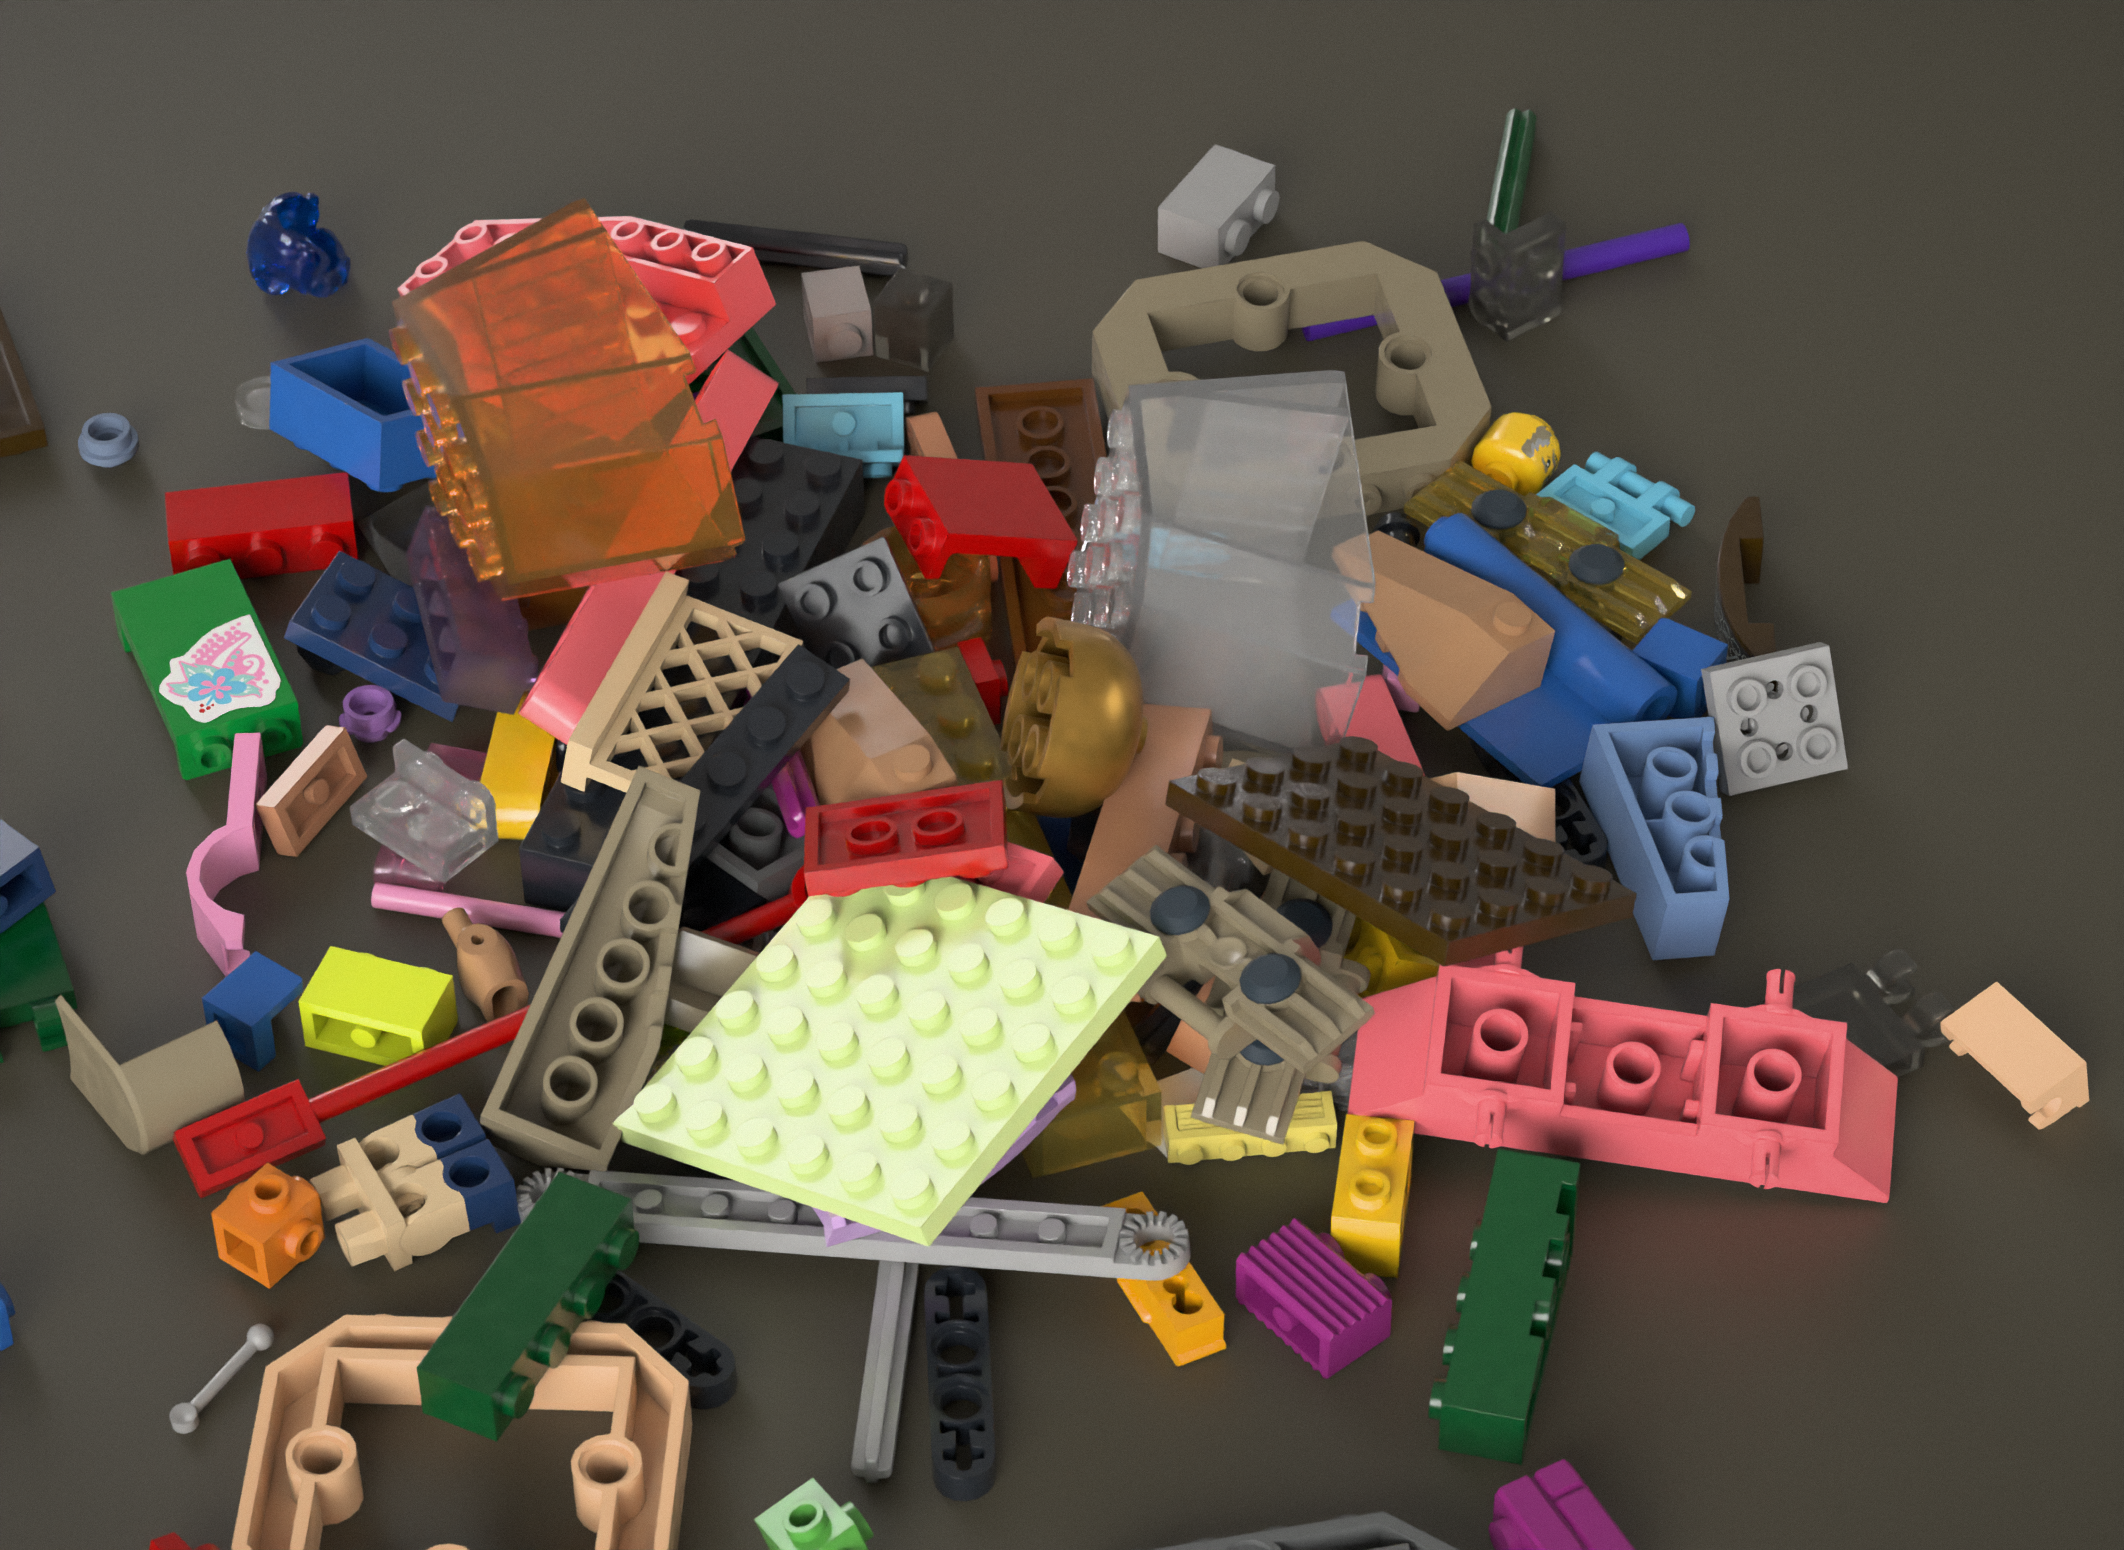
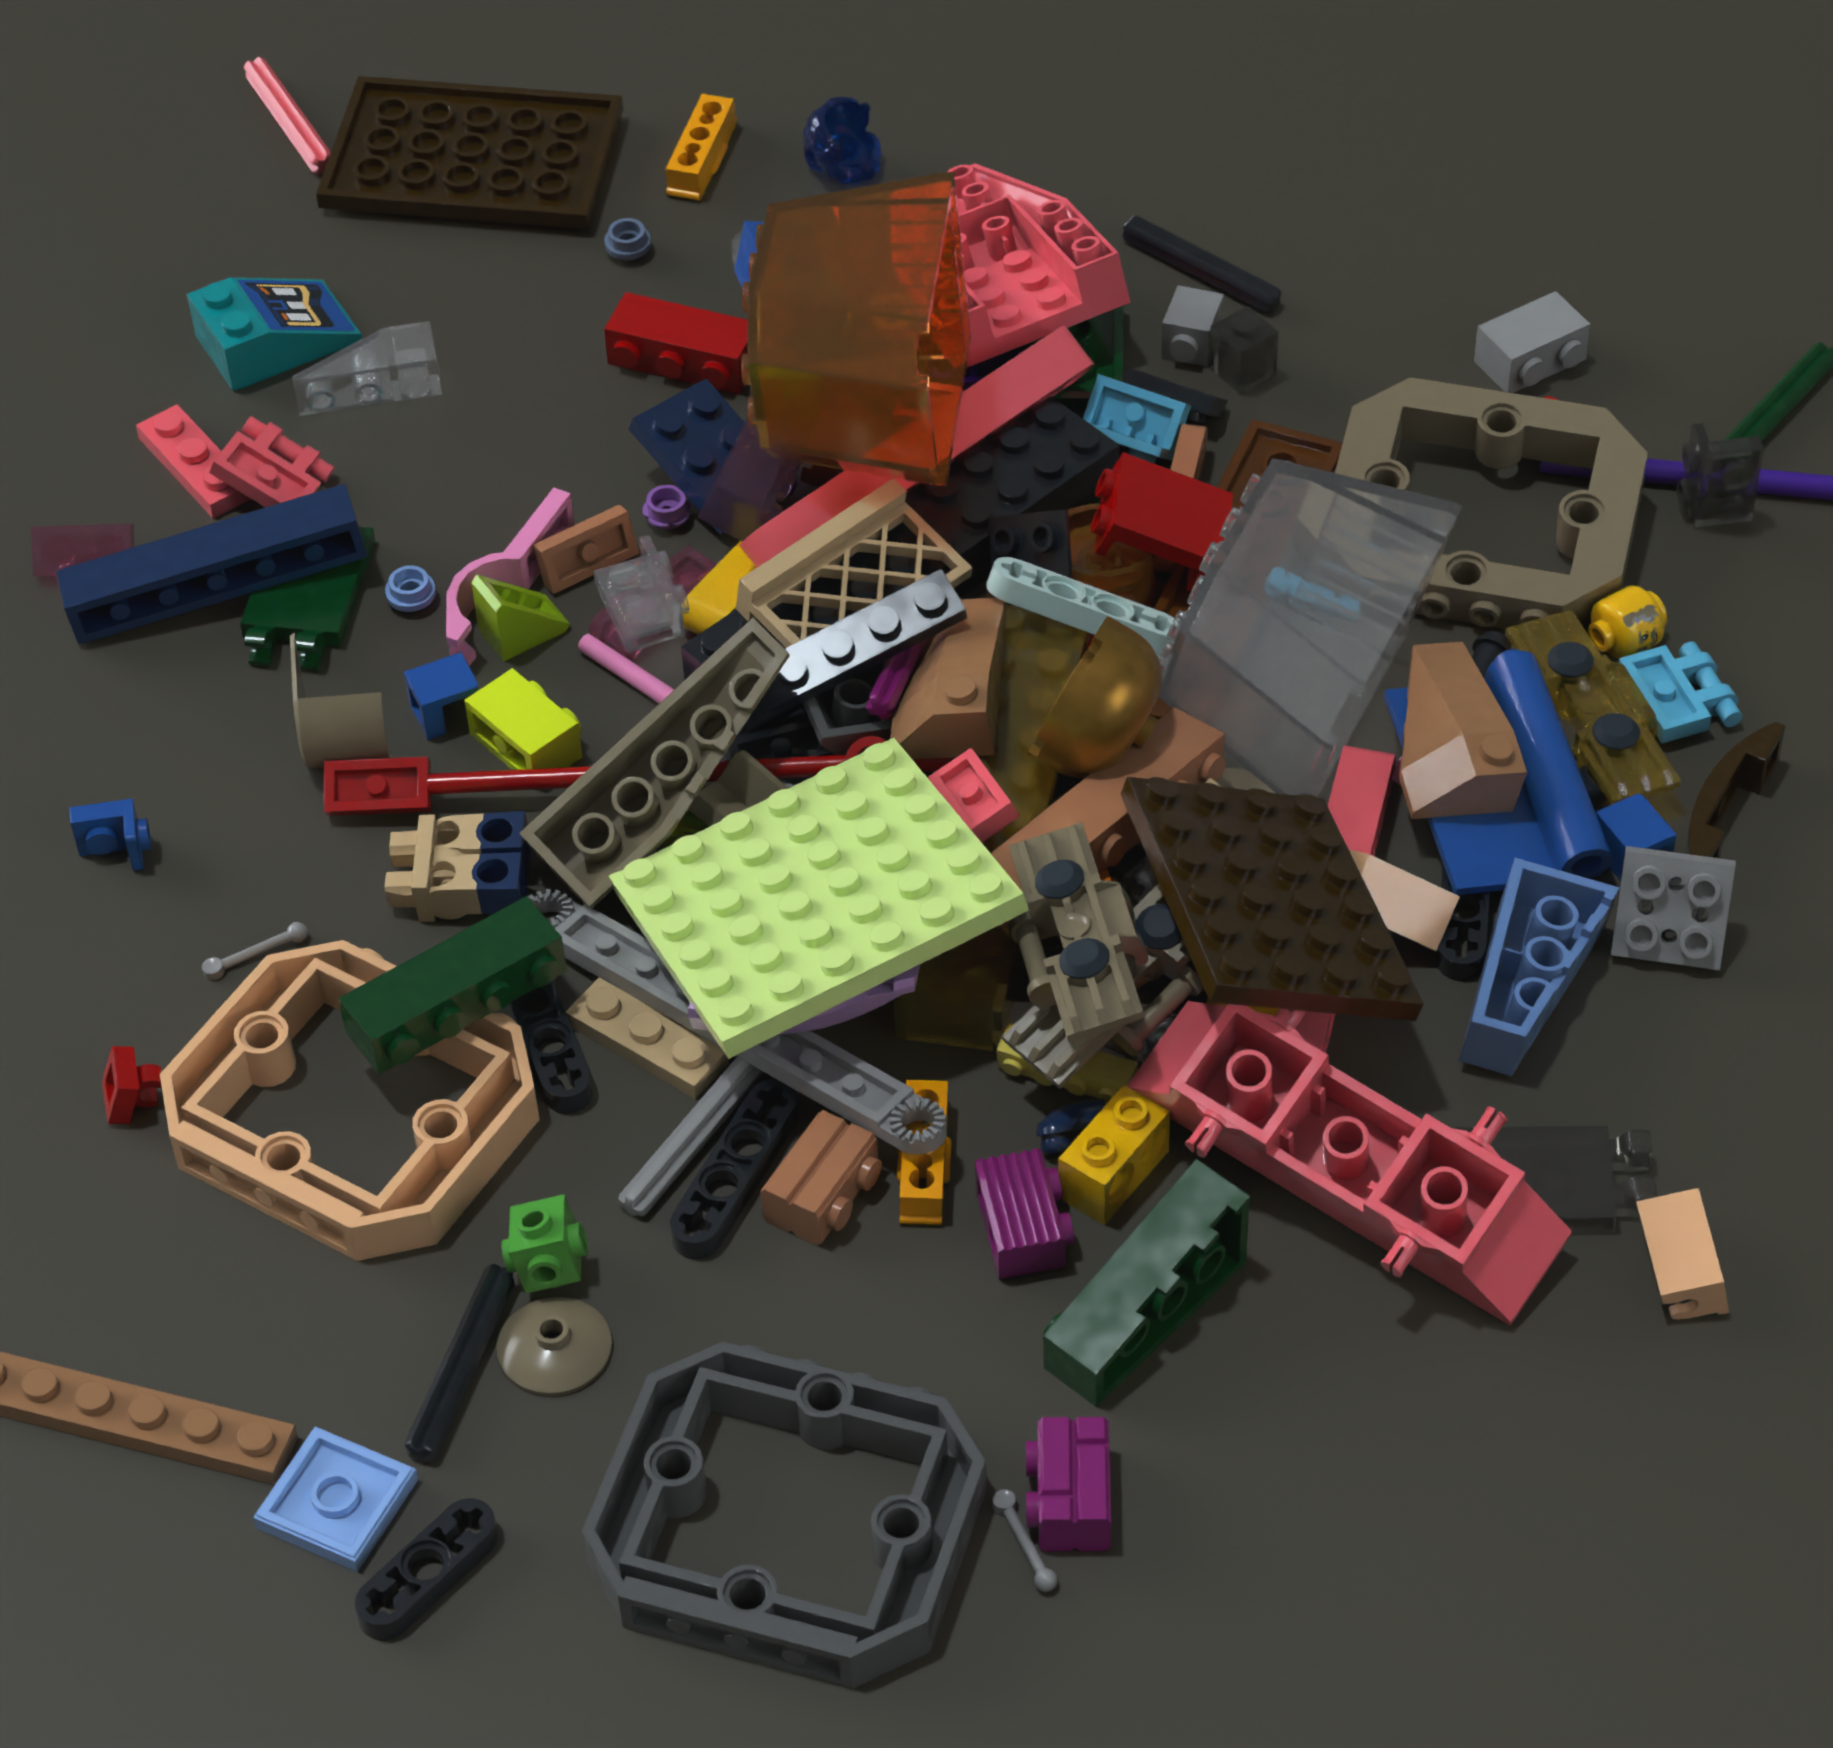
camera: 30 degrees right, 5 degrees up
(123, 912) = (410, 589): none -> light blue plate
(124, 313) = (701, 147): none -> light orange piece
(207, 666) = (576, 429): green panel -> none
(269, 1225) = (345, 853): orange brick -> none
(276, 898) = (514, 617): none -> lime slope
(486, 966) = (610, 716): medium nougat piece -> none
(760, 1286) = (647, 1038): none -> tan plate
(905, 839) = (915, 746): red plate -> none
(936, 637) = (1073, 601): none -> light aqua beam
(1069, 1350) = (821, 1178): none -> nougat brick
(1291, 1180) = (1066, 1118): none -> dark blue arm

